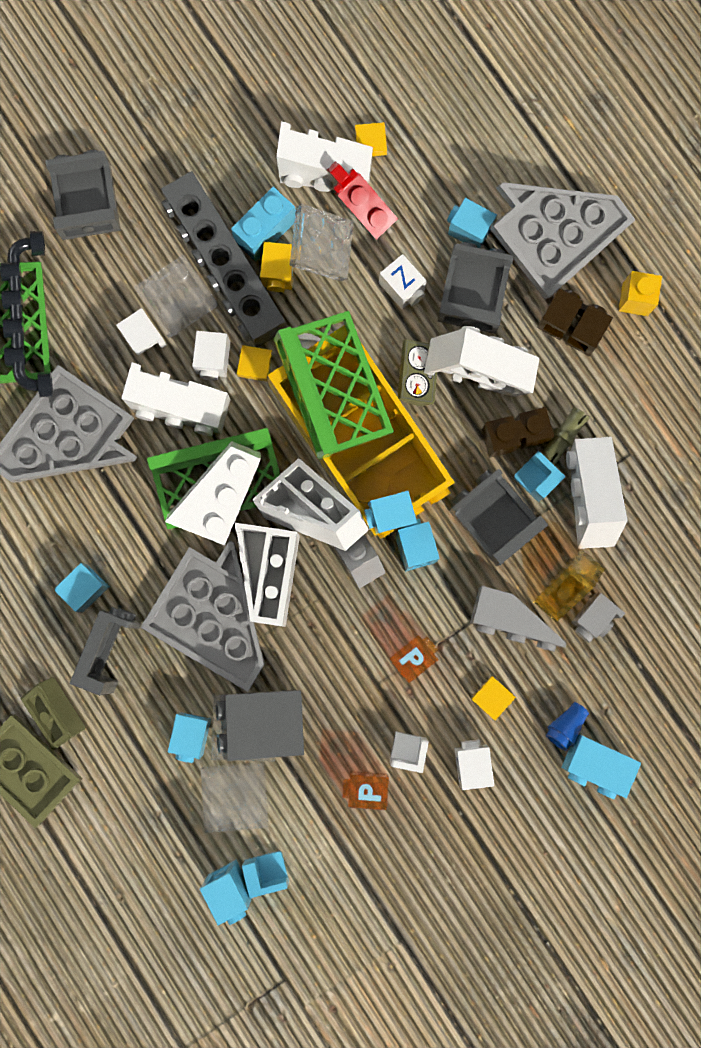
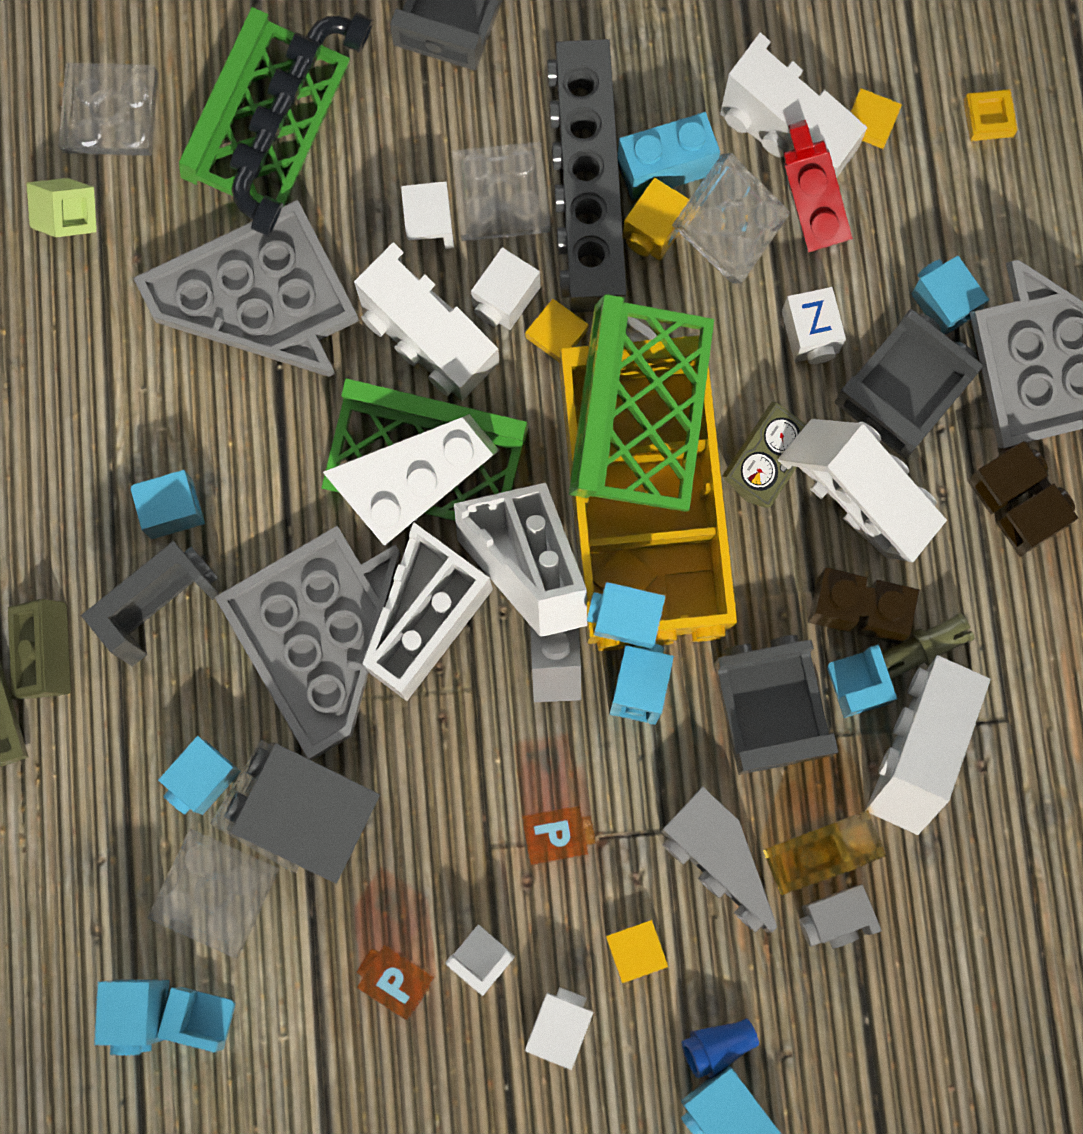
camera: 30 degrees right, 5 degrees down
(438, 102) = (990, 115): none -> yellow tile

